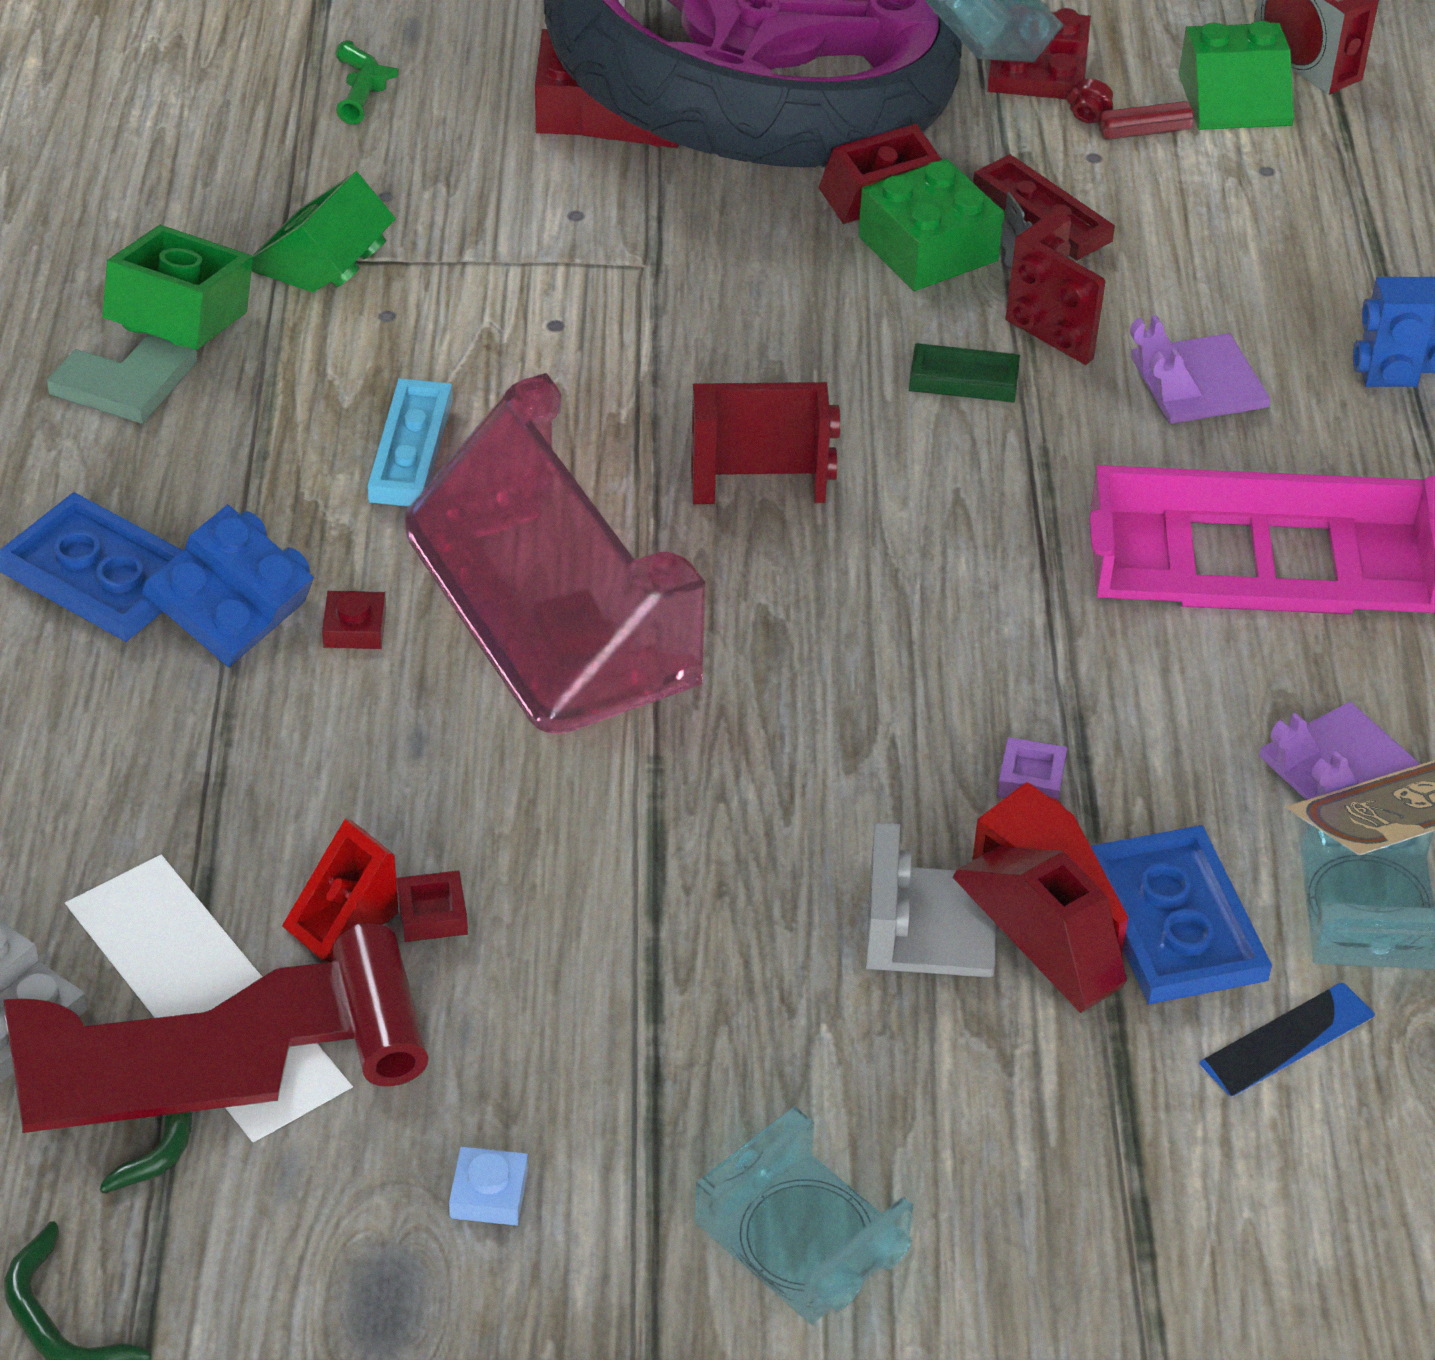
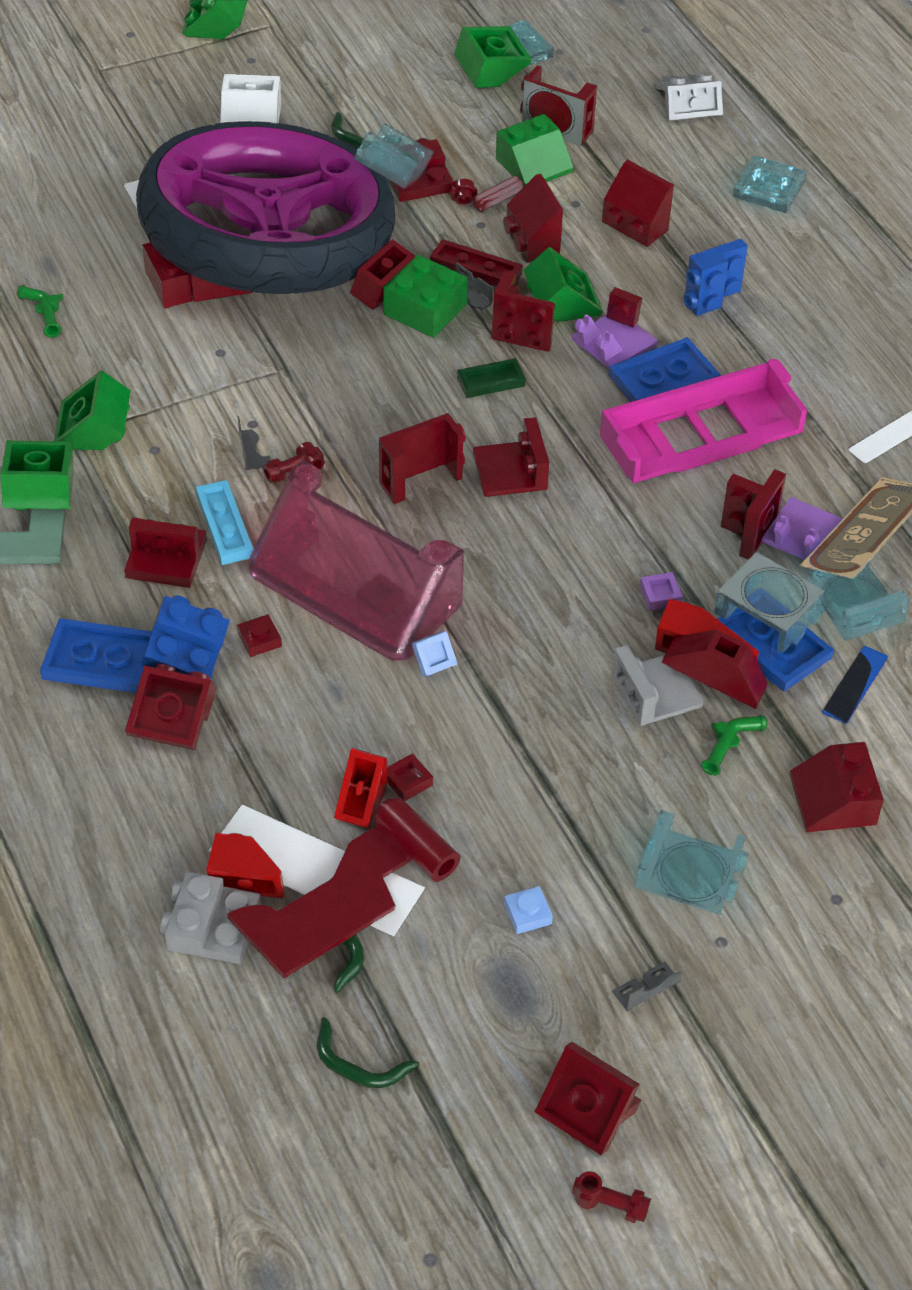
camera: 25 degrees left, 5 degrees up
(81, 939) = (244, 865): none -> red slope
(144, 669) = (170, 706): none -> dark red plate
(294, 453) = (164, 552): none -> dark red bracket
(535, 344) = (251, 457): none -> dark grey piece
(597, 736) = (434, 653): none -> light blue plate
(601, 393) = (276, 471): none -> dark red bar
(911, 506) = (514, 465): none -> dark red bracket
(1003, 1042) = (726, 738): none -> green piece
(1137, 1194) = (837, 788): none -> dark red slope
(1159, 272) = (563, 283): none -> green slope
(1169, 170) = (534, 219): none -> dark red slope
(1200, 841) = (772, 597): none -> clear light blue panel
(1235, 329) = (624, 307): none -> dark red plate
(1248, 440) = (662, 370): none -> blue plate
(1256, 689) = (752, 509): none -> dark red bracket
(1356, 192) = (638, 204): none -> dark red slope

